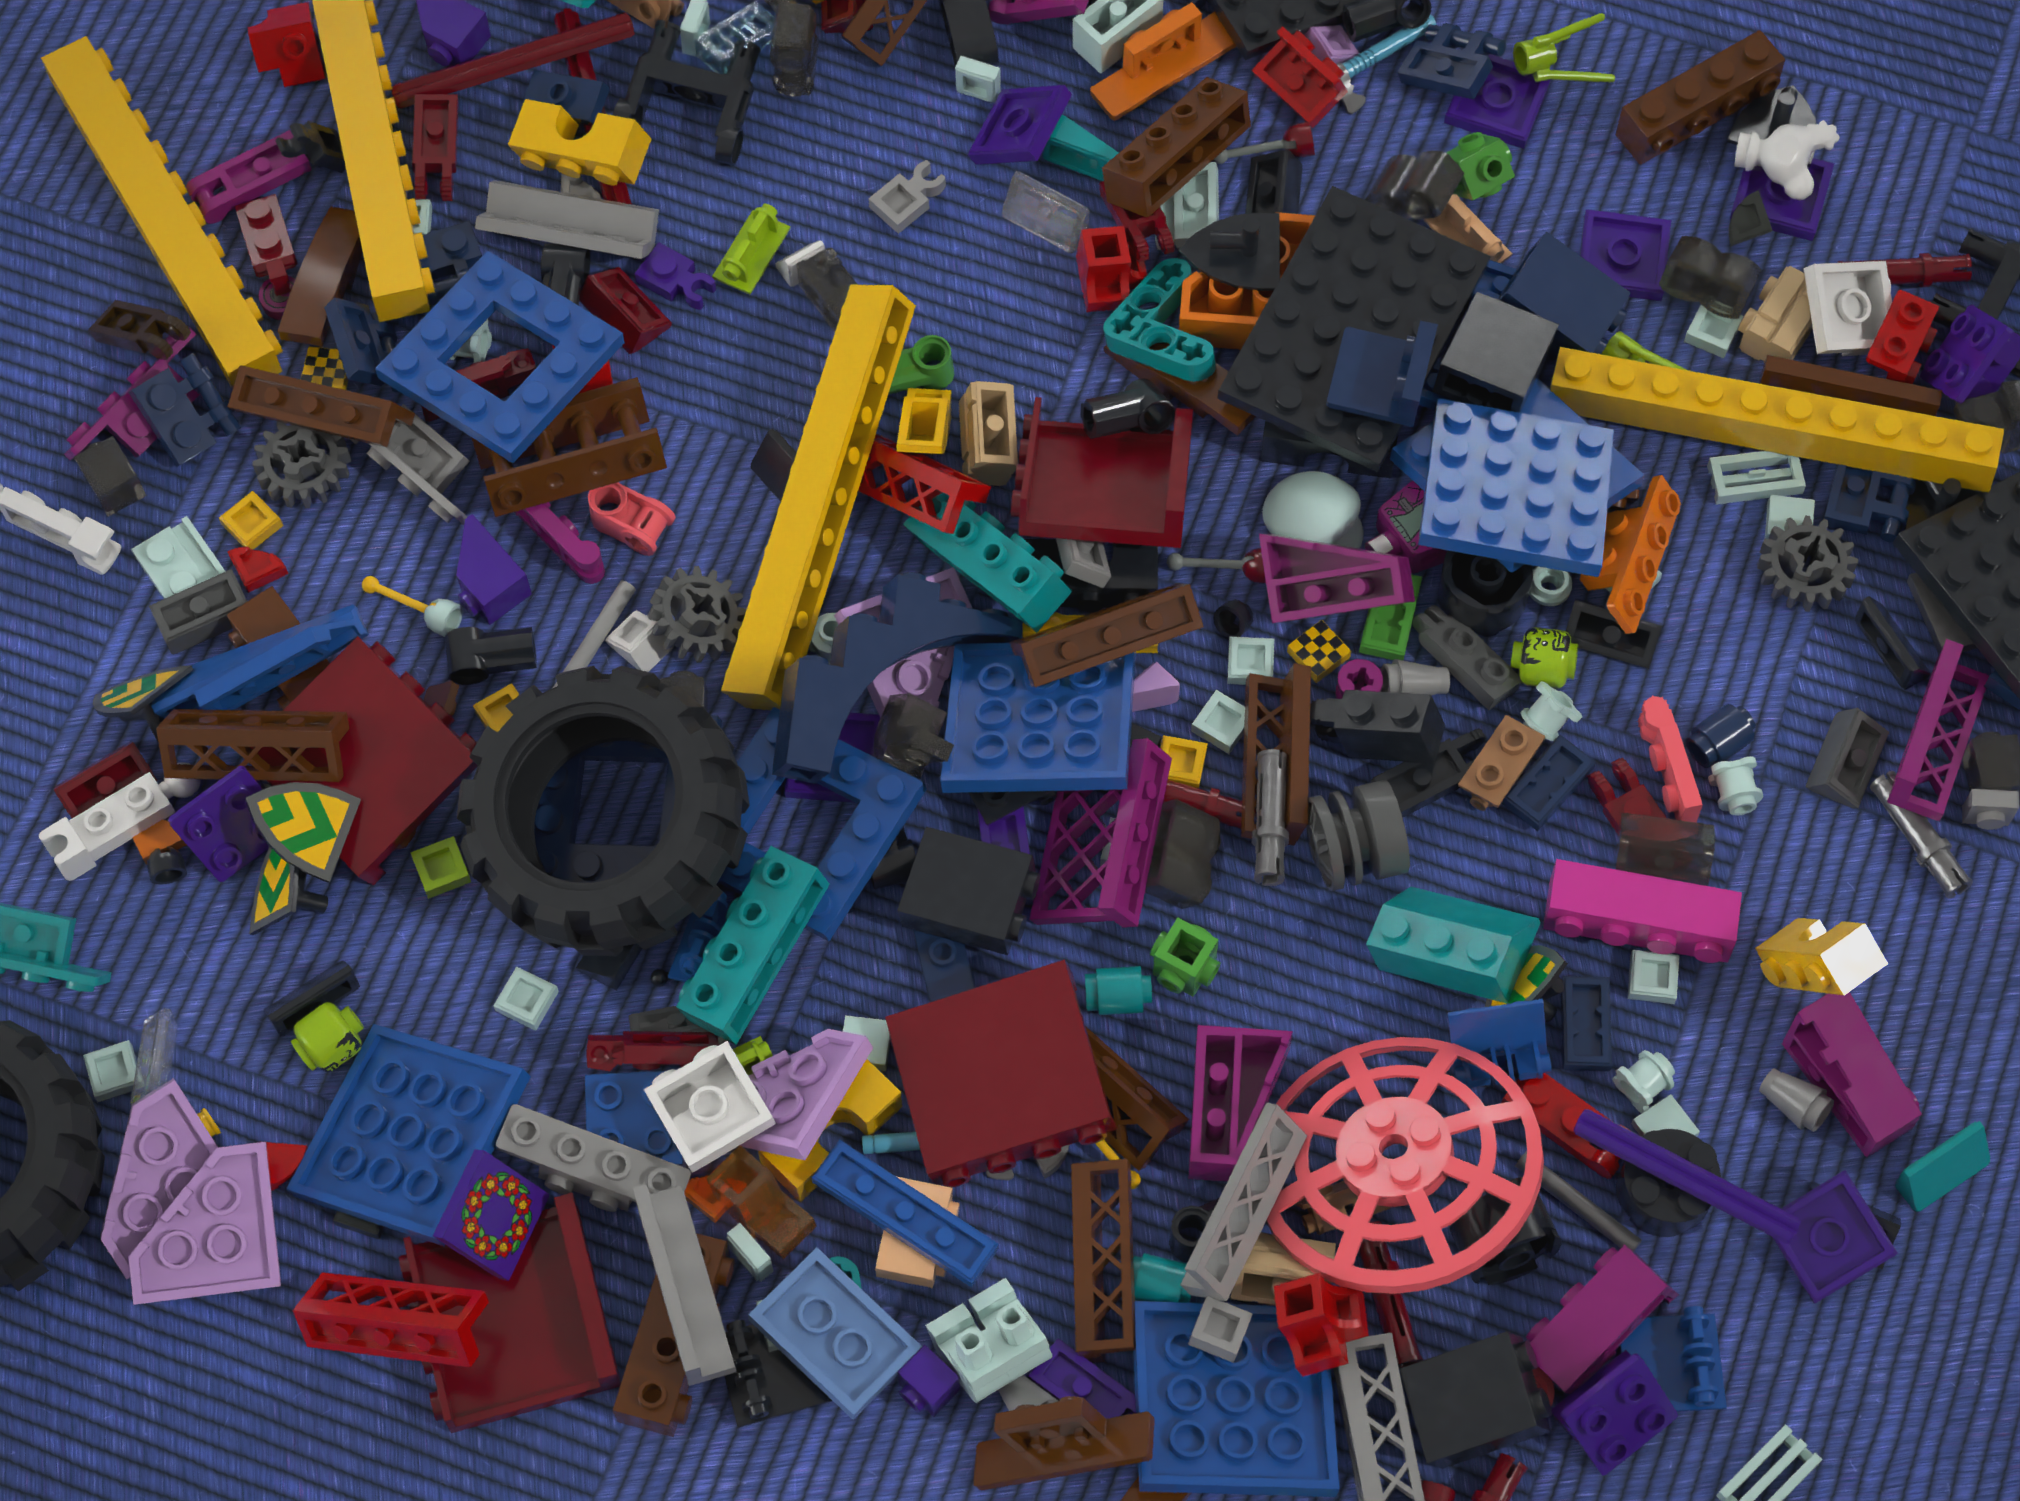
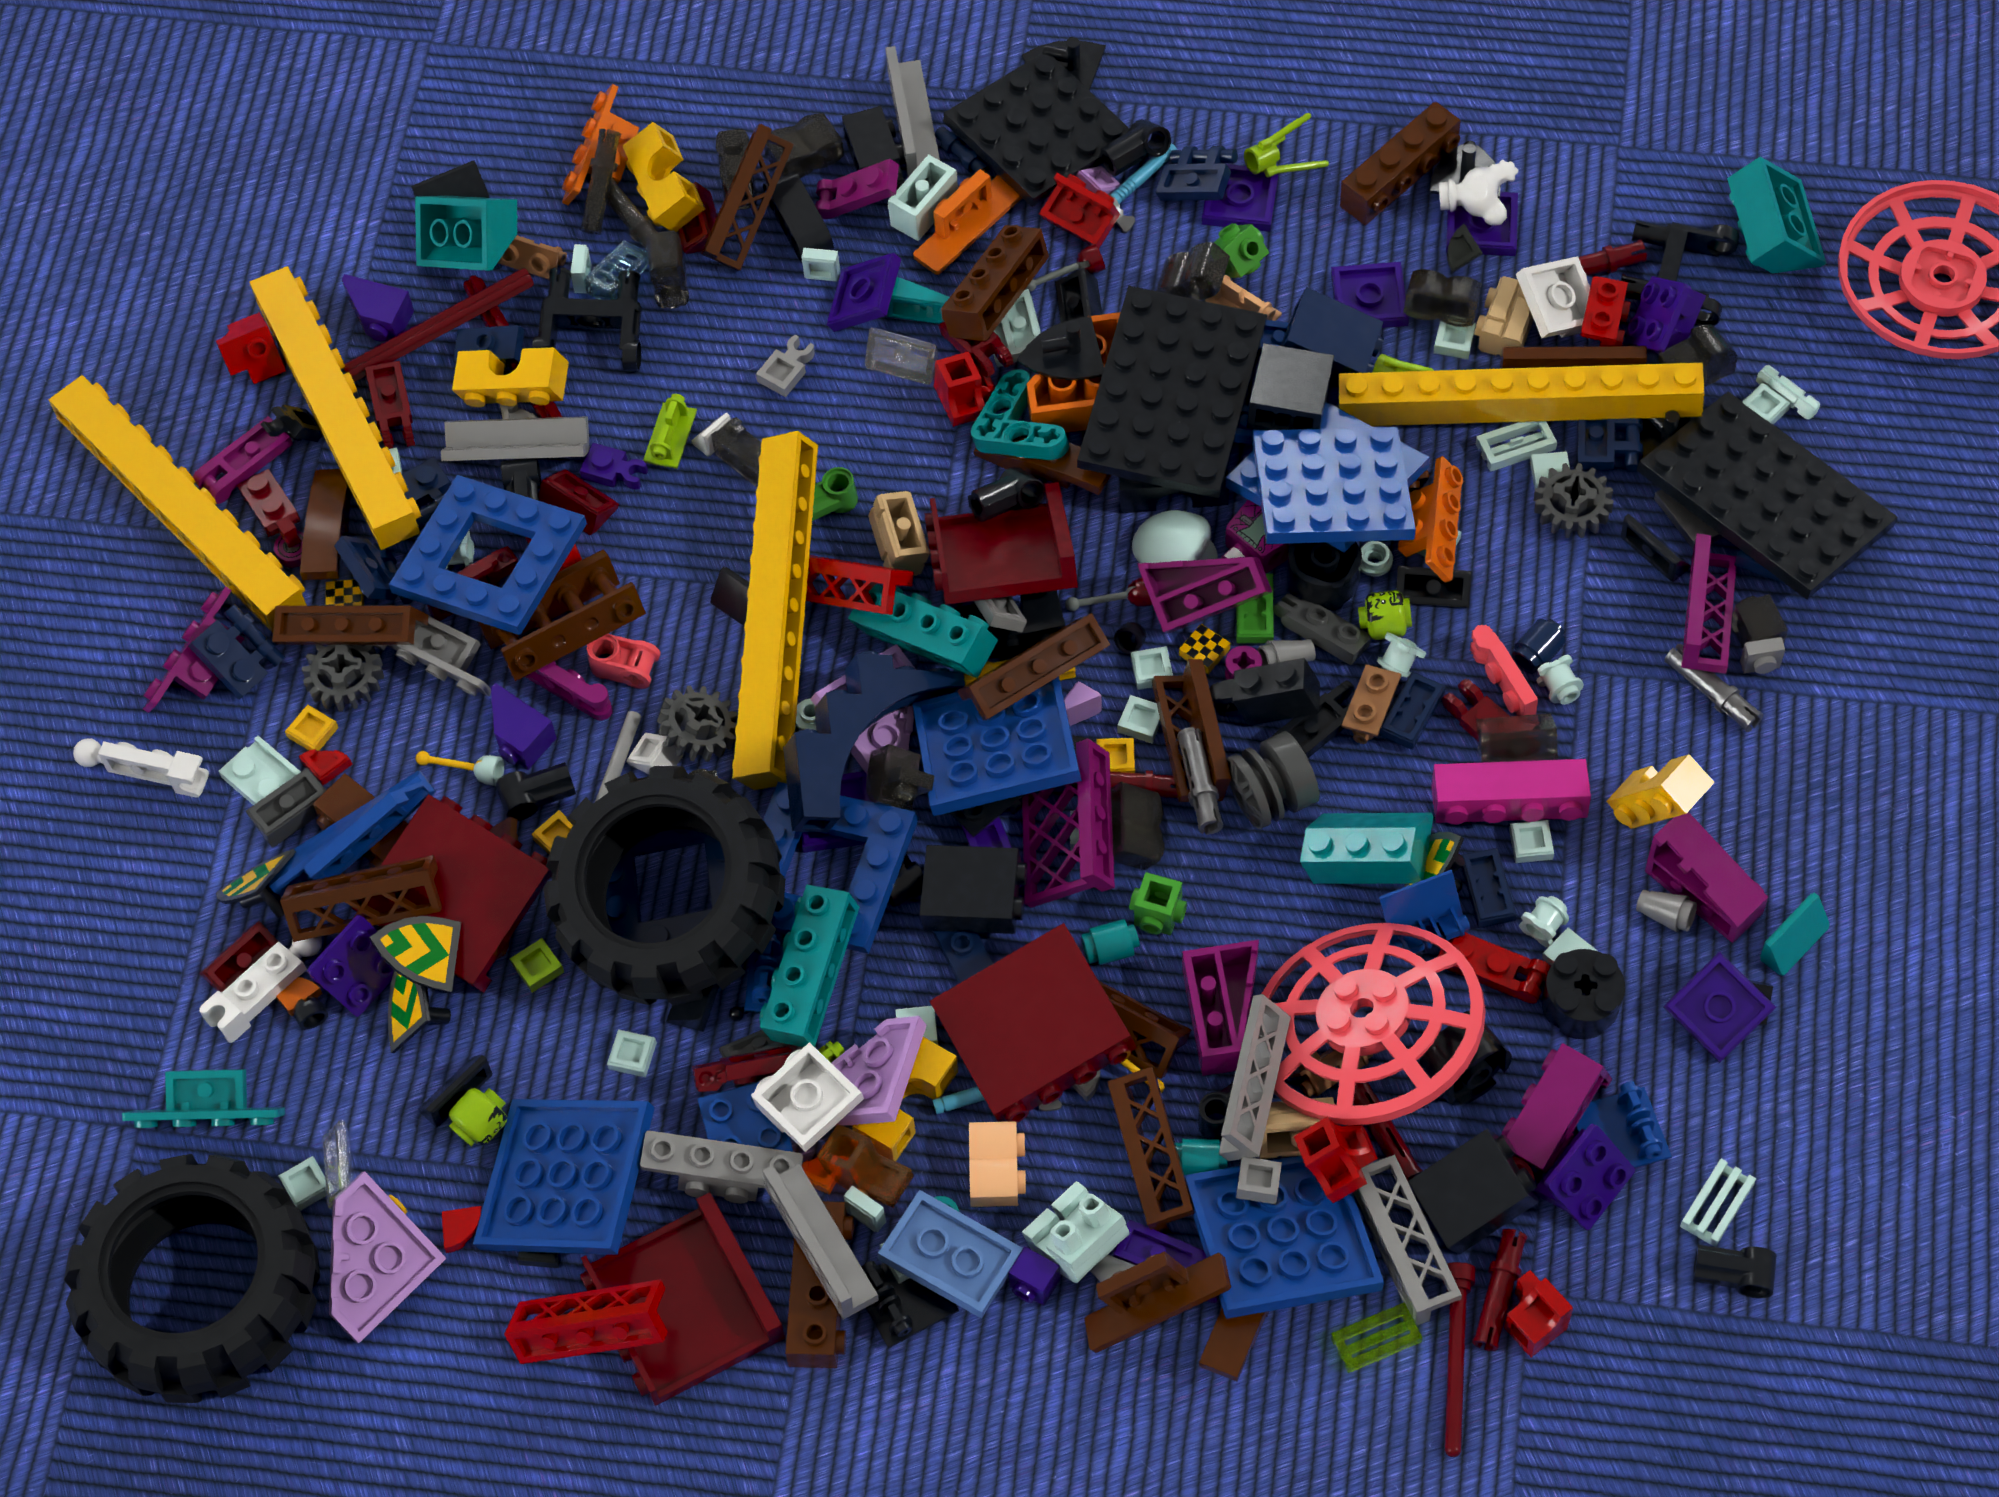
camera: 10 degrees left, 5 degrees down
(110, 475) = (186, 716): clear smoke brick -> none
(138, 329) = (183, 595): dark brown hinge -> none
(213, 1234) = (423, 1289): lavender plate -> none
(491, 1215) = (649, 1222): tile -> none
(905, 1213) = (984, 1147): blue tile -> none
(925, 421) = (846, 534): yellow slope -> none
(1381, 374) = (1205, 419): dark blue bracket -> none
(1584, 1207) = (1518, 1027): flat silver bar -> none
(1687, 1176) = (1597, 981): dark purple axle -> none
(1847, 757) = (1641, 642): dark grey slope -> none

